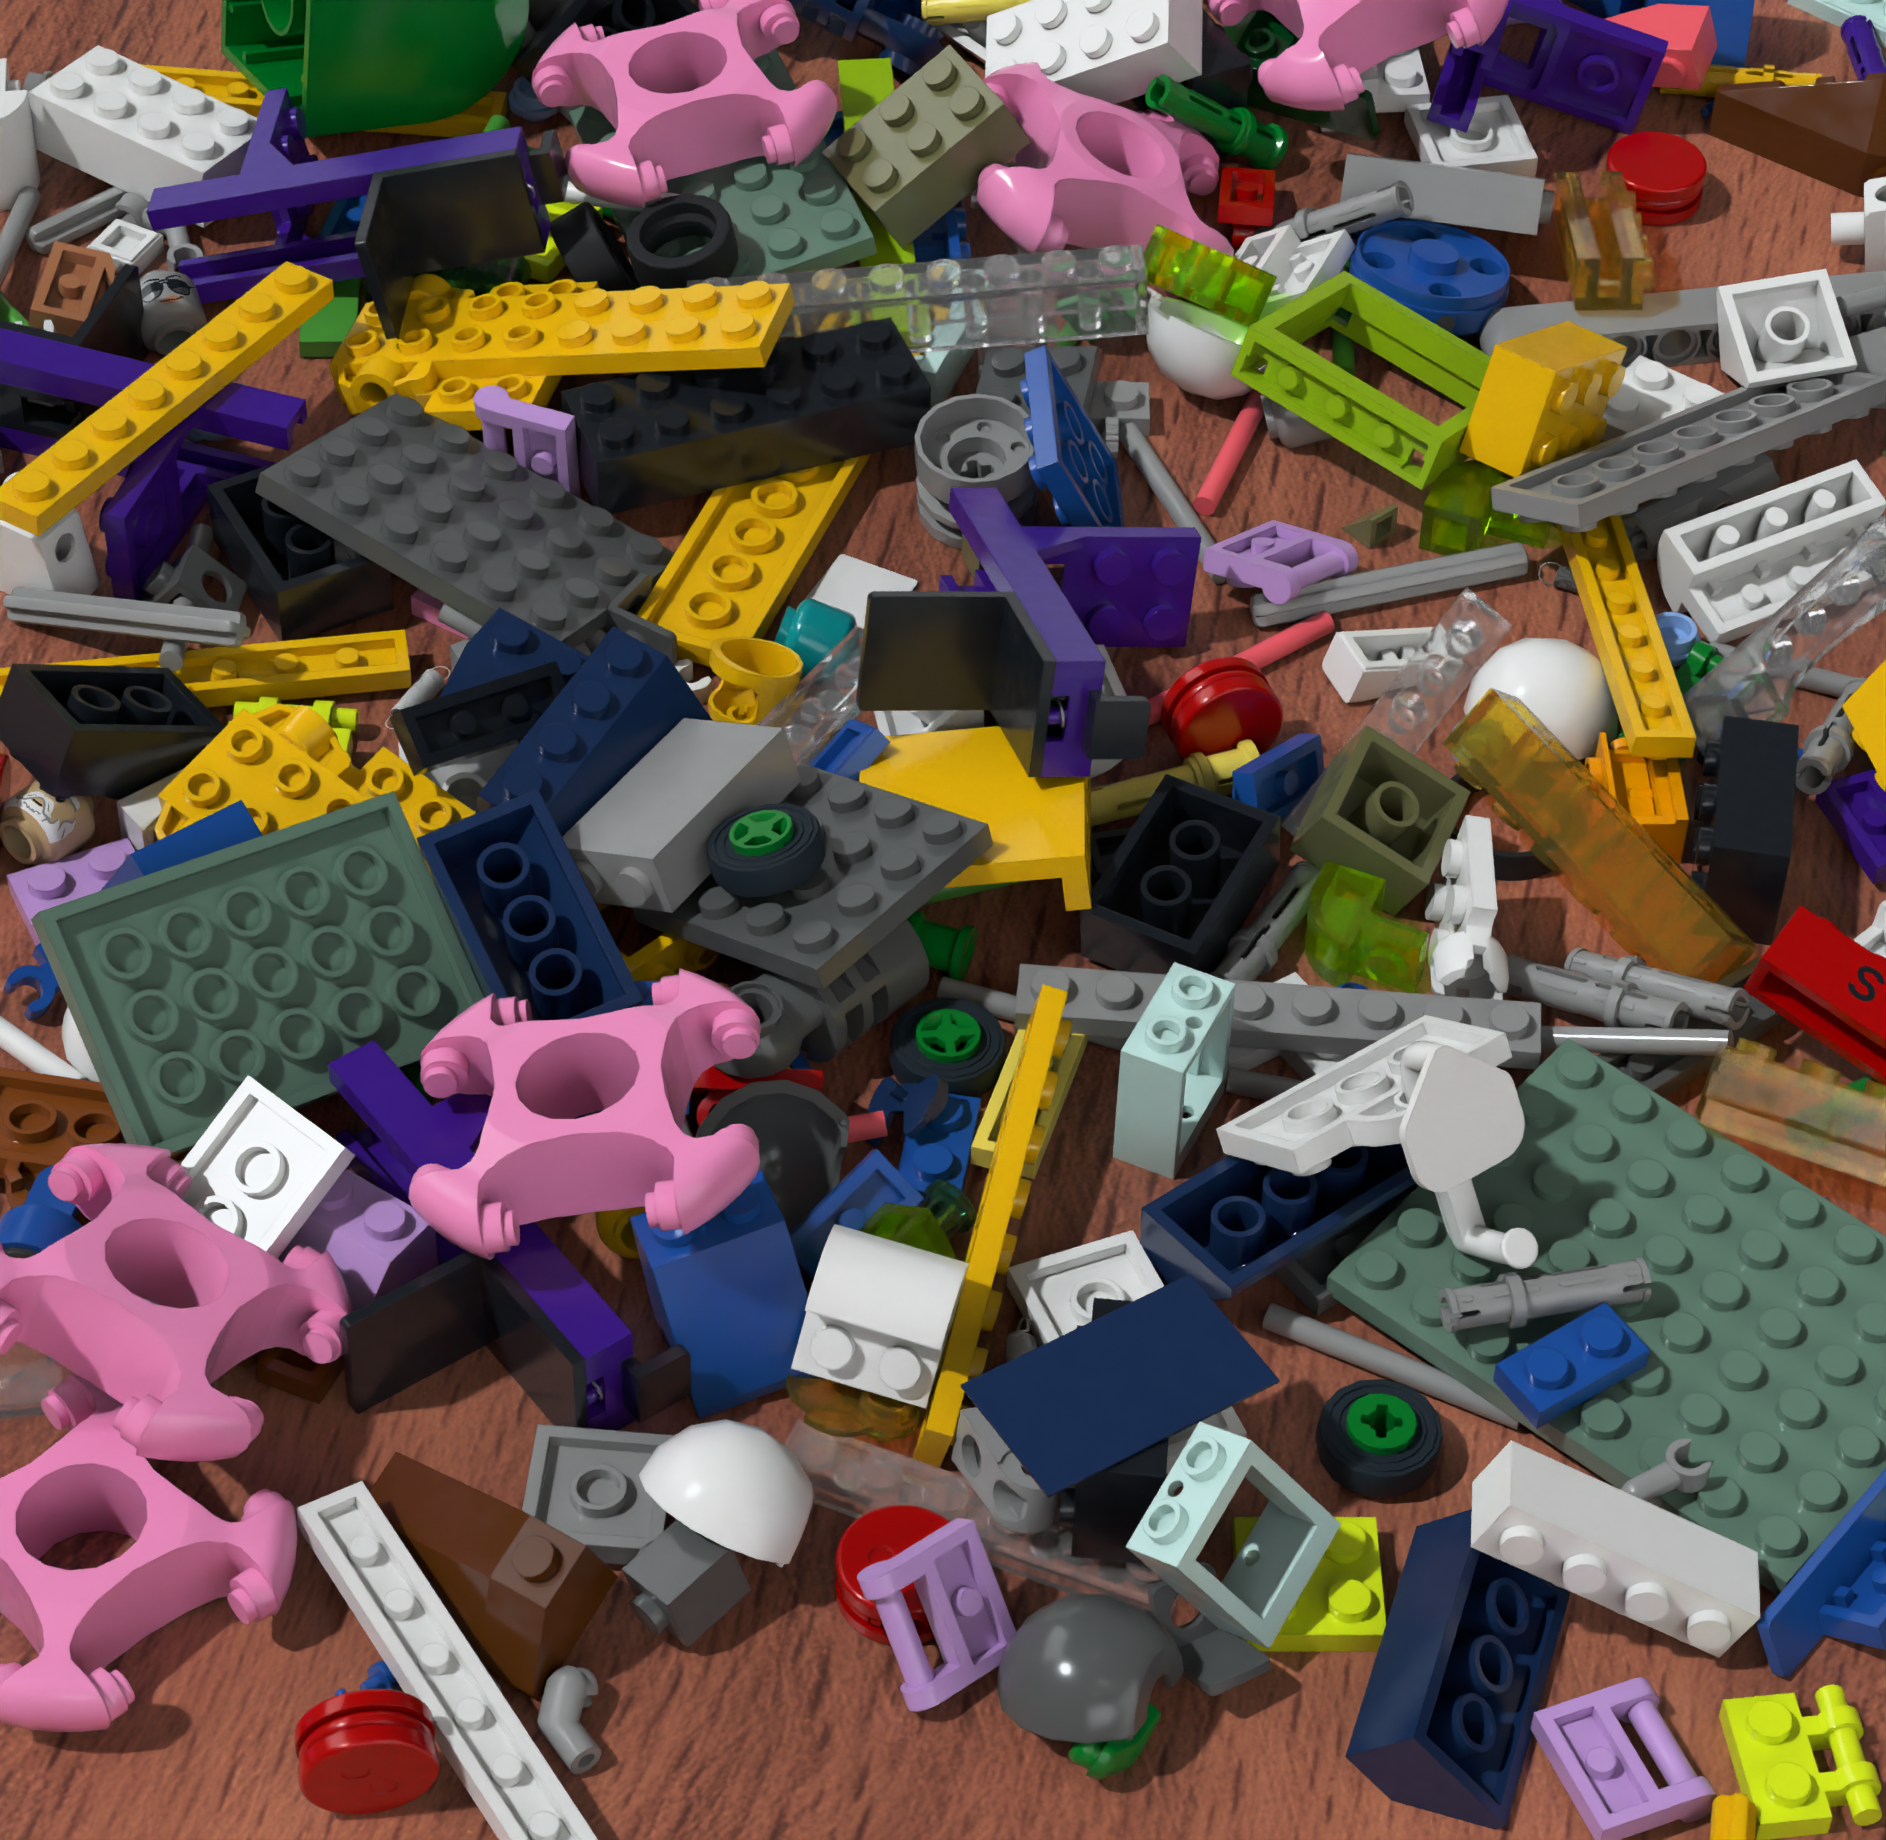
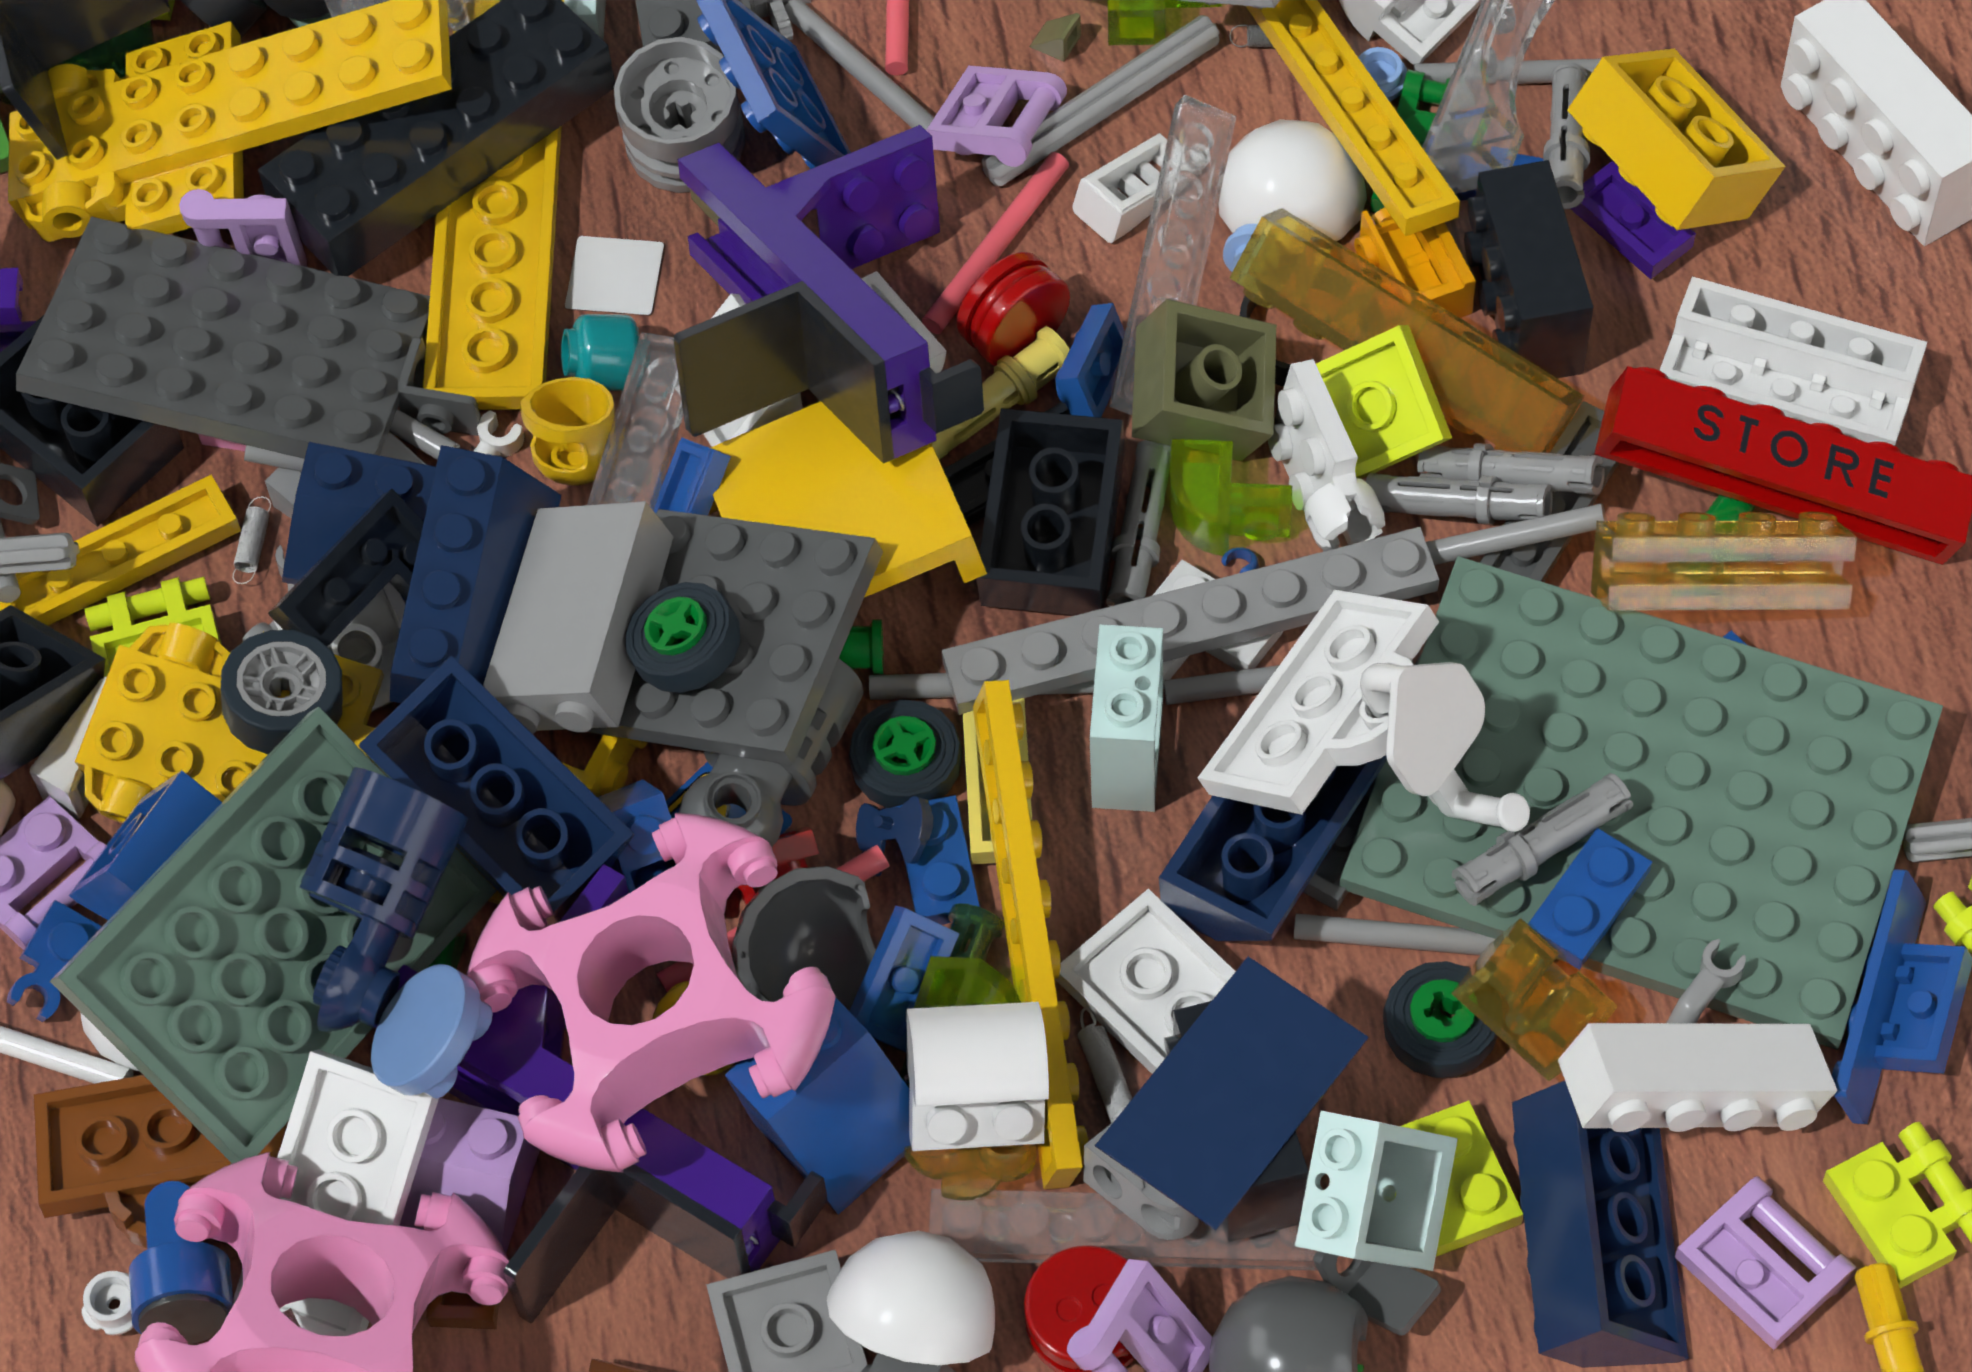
camera: 15 degrees left, 15 degrees up
(363, 1085) = (428, 1031): none -> medium blue tile
(368, 765) = (265, 667): none -> wheel
(379, 942) = (374, 890): none -> dark blue cylinder
(1464, 1422) = (1530, 998): none -> clear yellow brick
(1549, 887) = (1385, 400): none -> neon yellow plate

